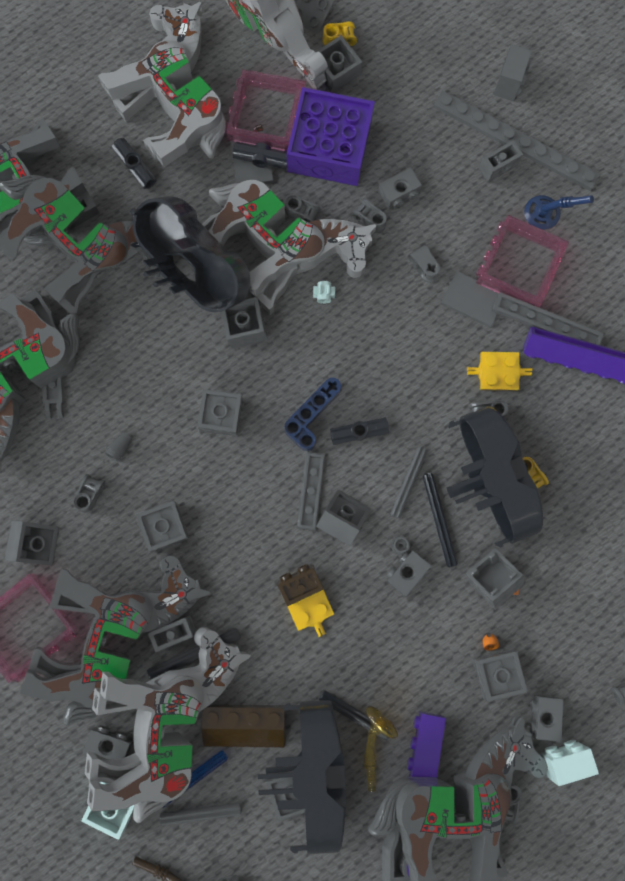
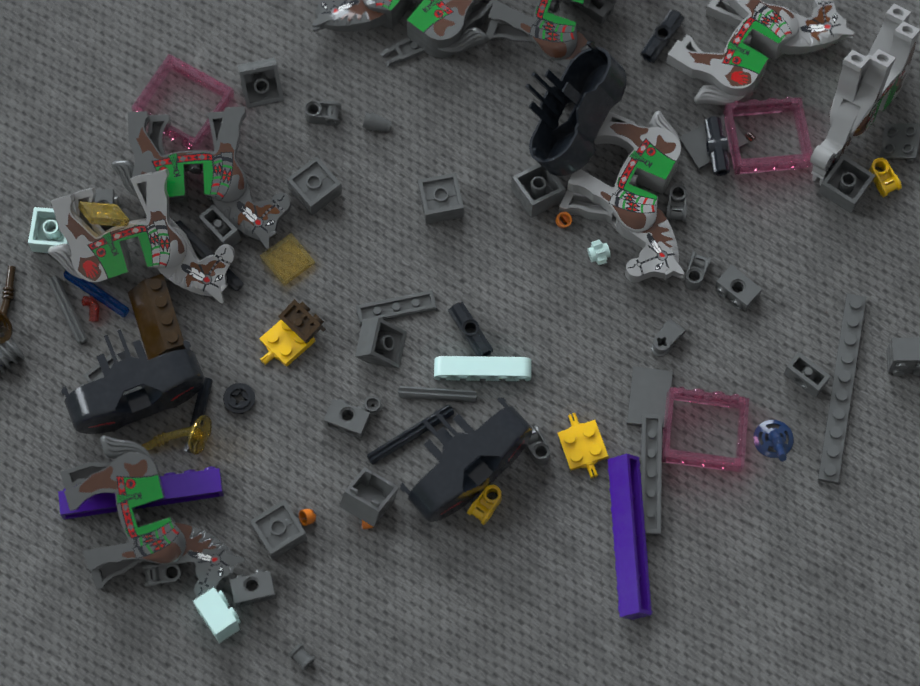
camera: 75 degrees right, 10 degrees down
(126, 756) = (103, 214): none -> clear yellow tile
(207, 786) = (94, 307): none -> clear red arm
(226, 577) = (287, 259): none -> clear yellow tile
(279, 309) = (566, 218): none -> orange hinge
(315, 410) = (473, 284): dark blue beam -> none
(329, 136) = (761, 201): dark purple piece -> none
(352, 679) = (235, 390): none -> black gear
(399, 433) = (476, 368): none -> light aqua beam

